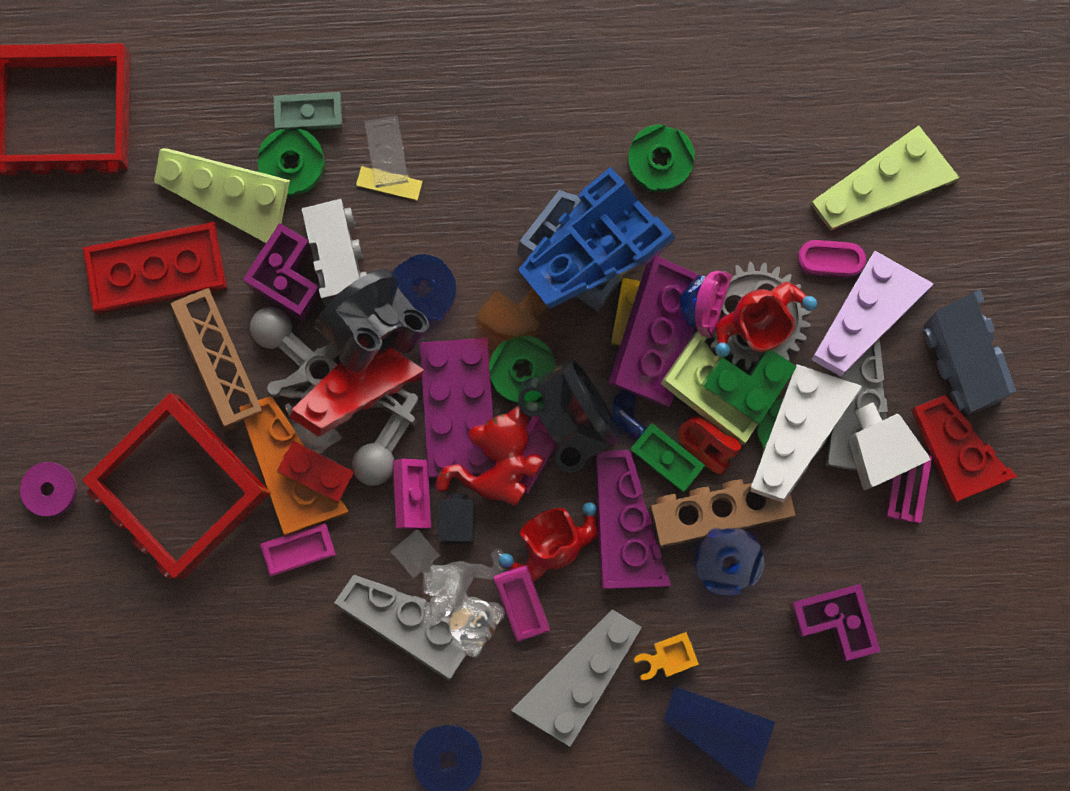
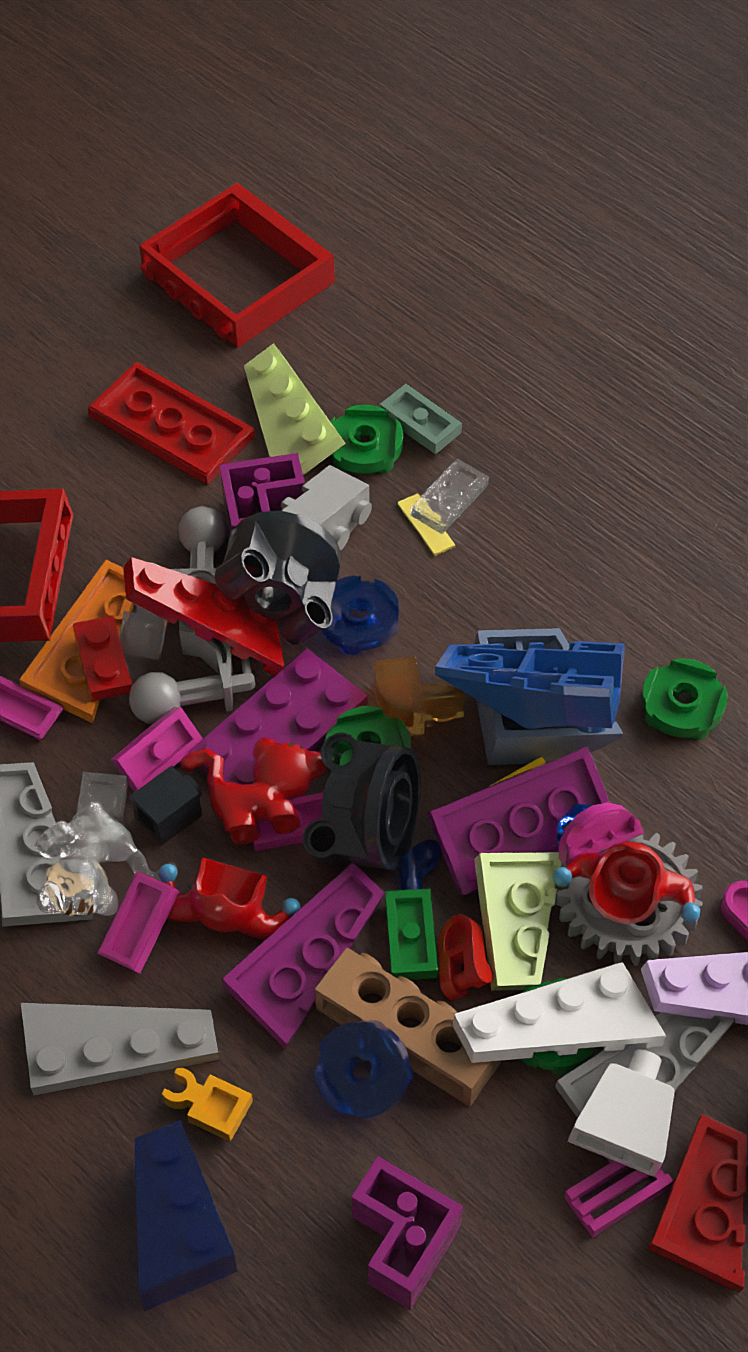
camera: 45 degrees right, 25 degrees down
(202, 362) = (125, 504): medium nougat fence -> none
(752, 392) = (556, 948): green plate -> none

